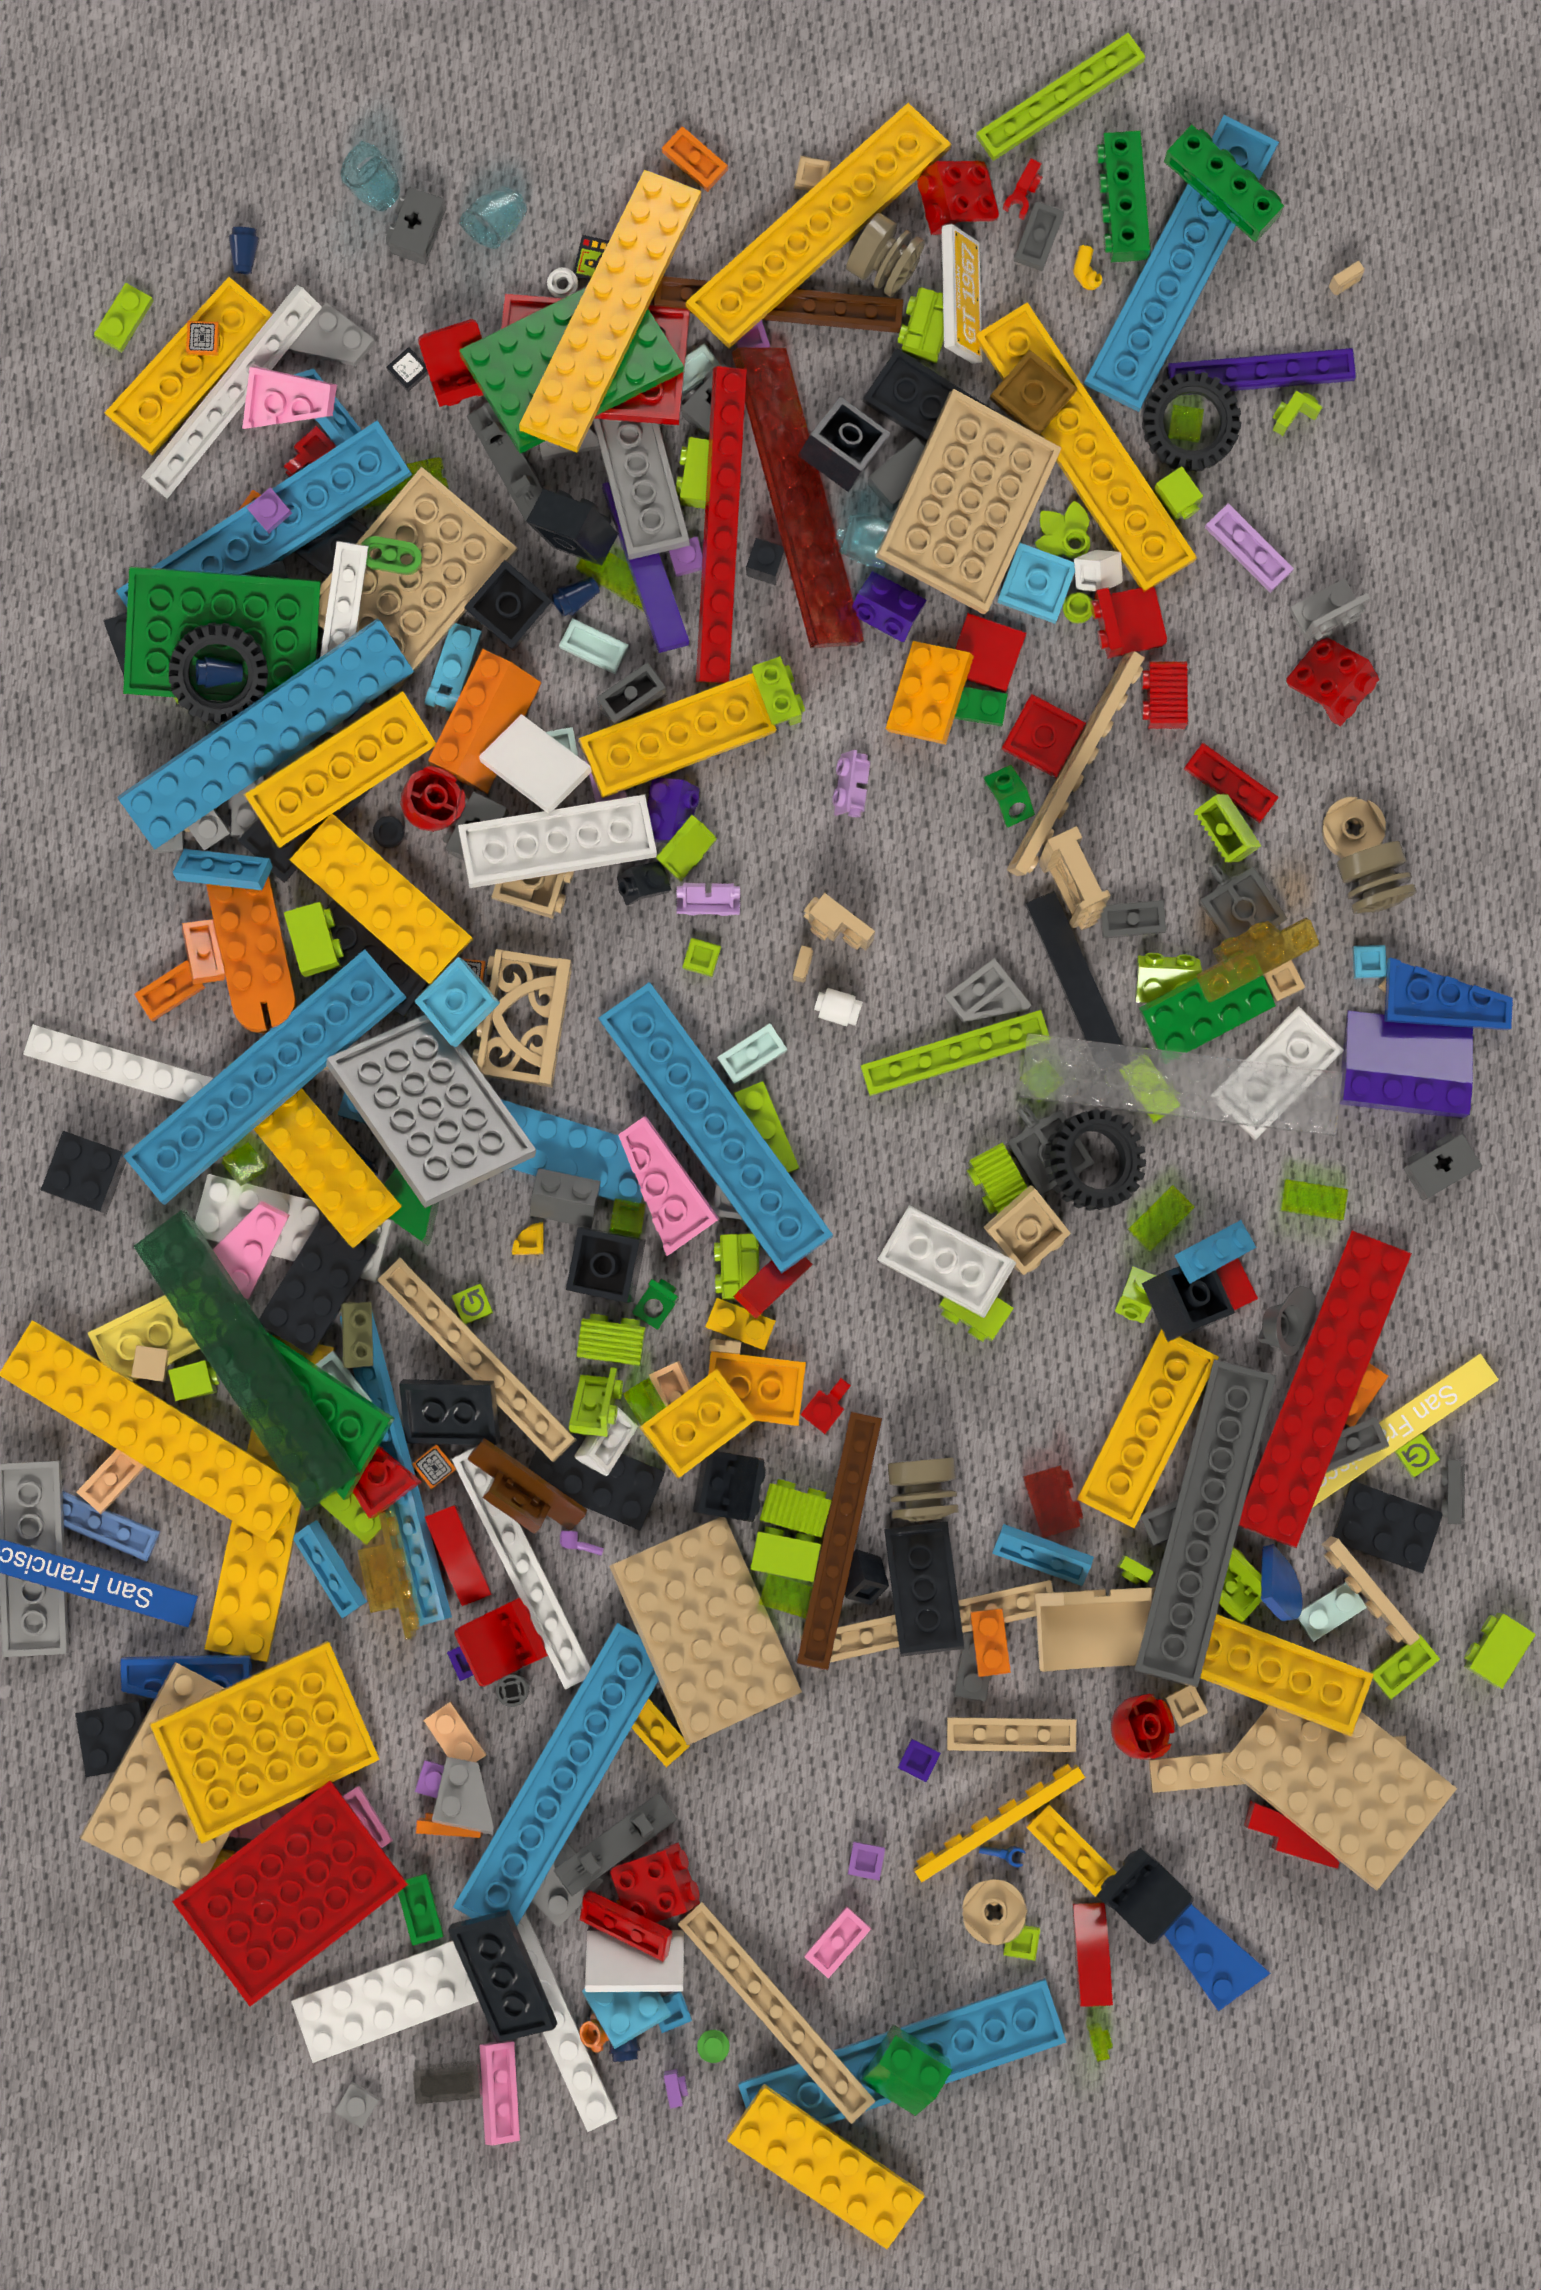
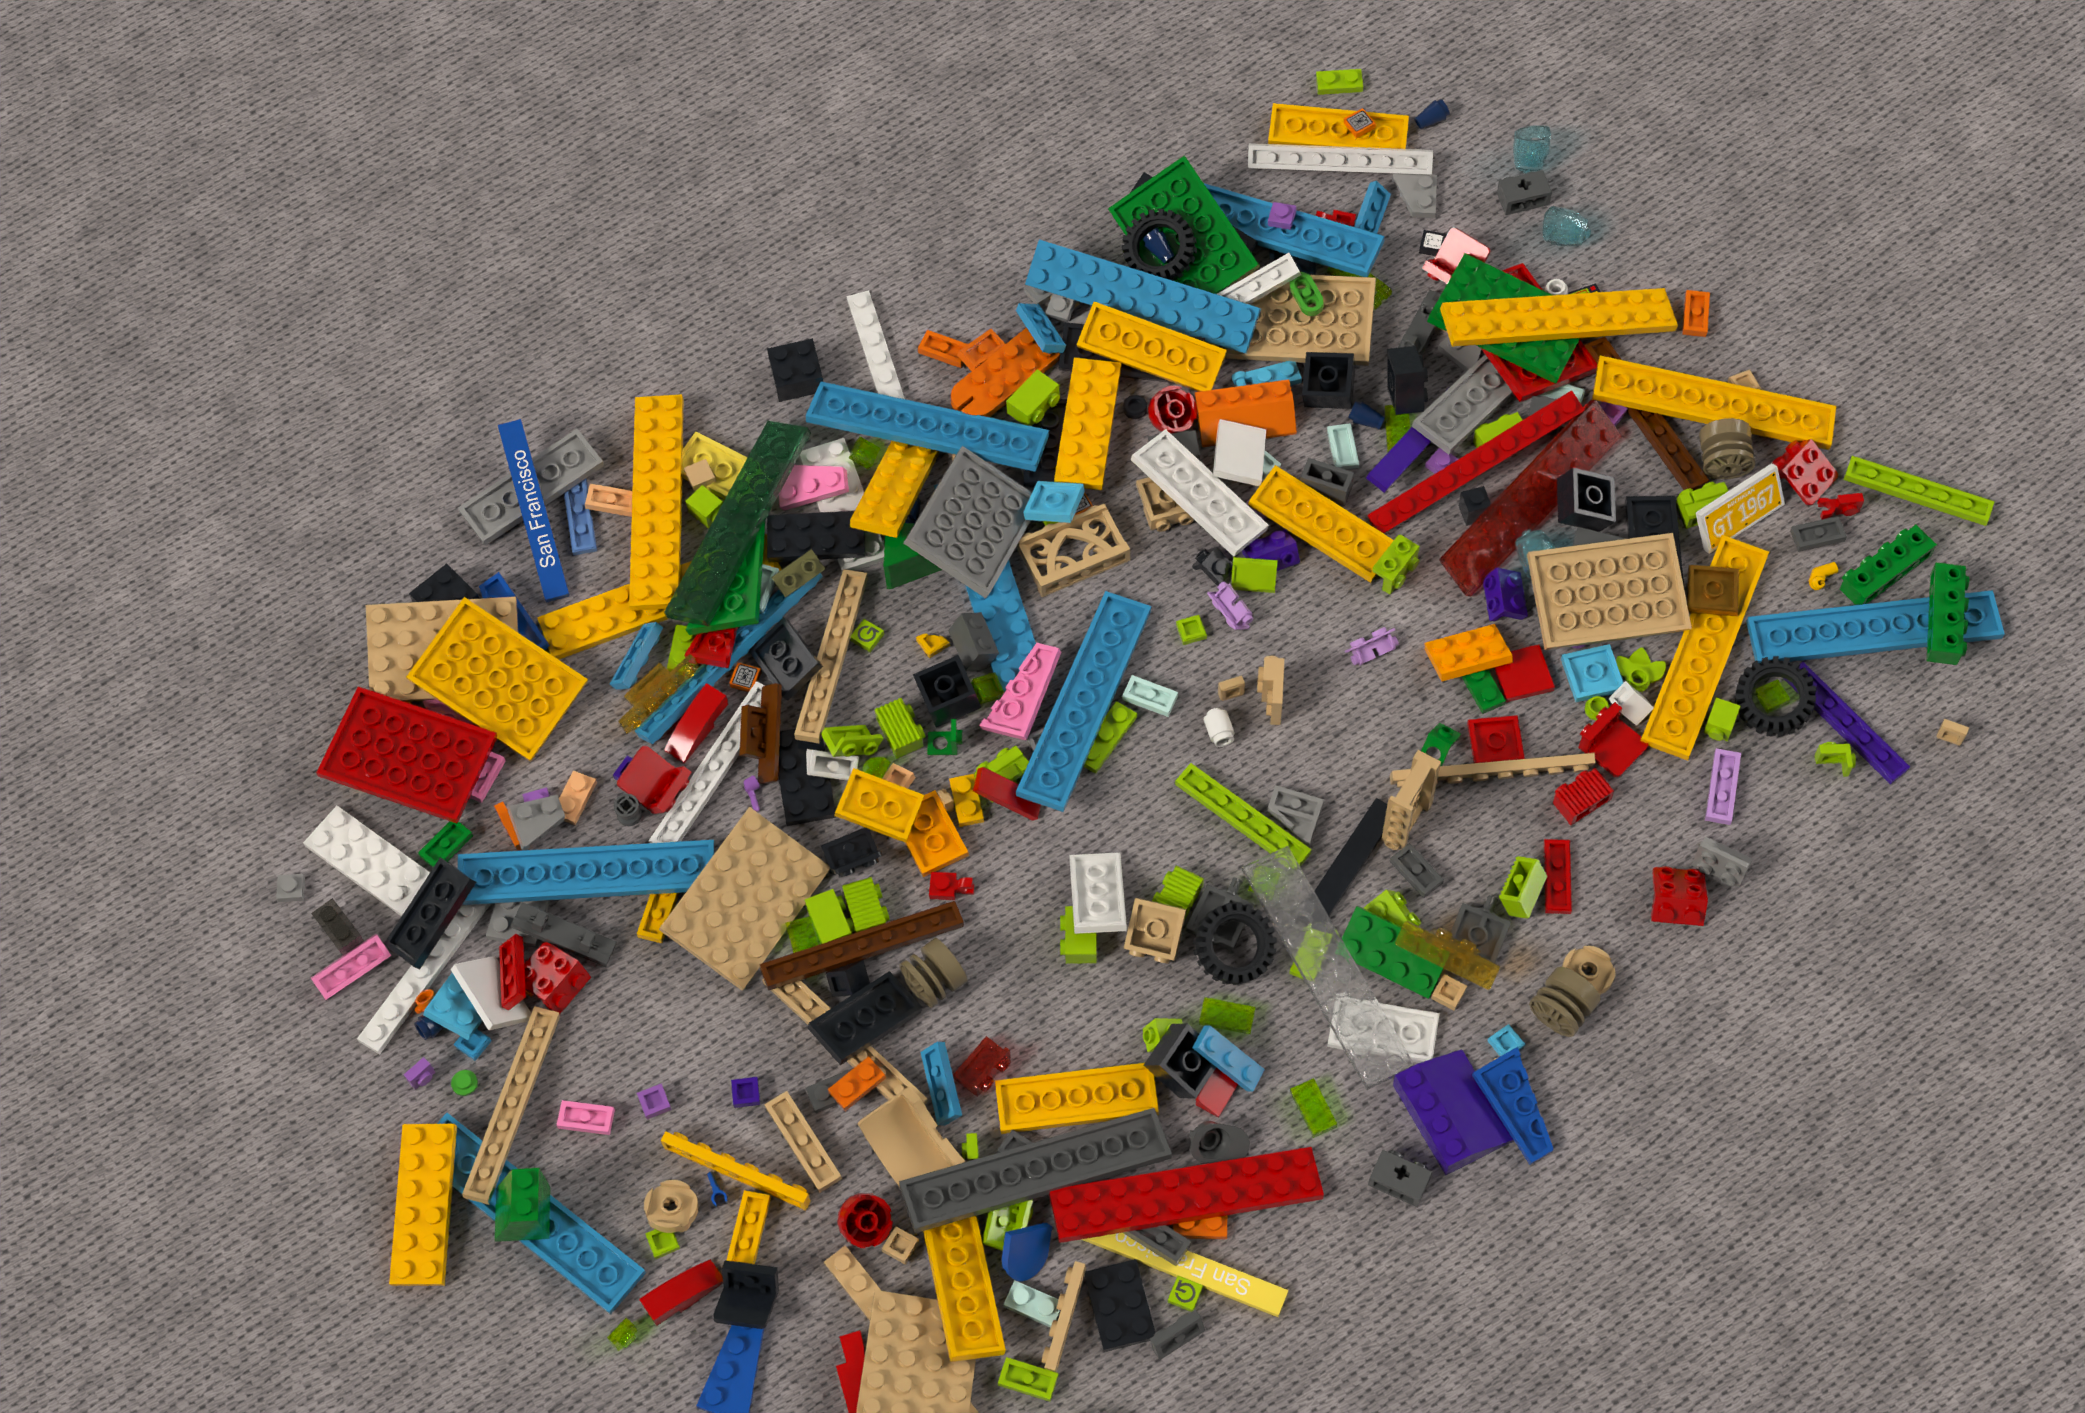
camera: 60 degrees right, 20 degrees down
(285, 398) = (1357, 185): bright pink wing -> none

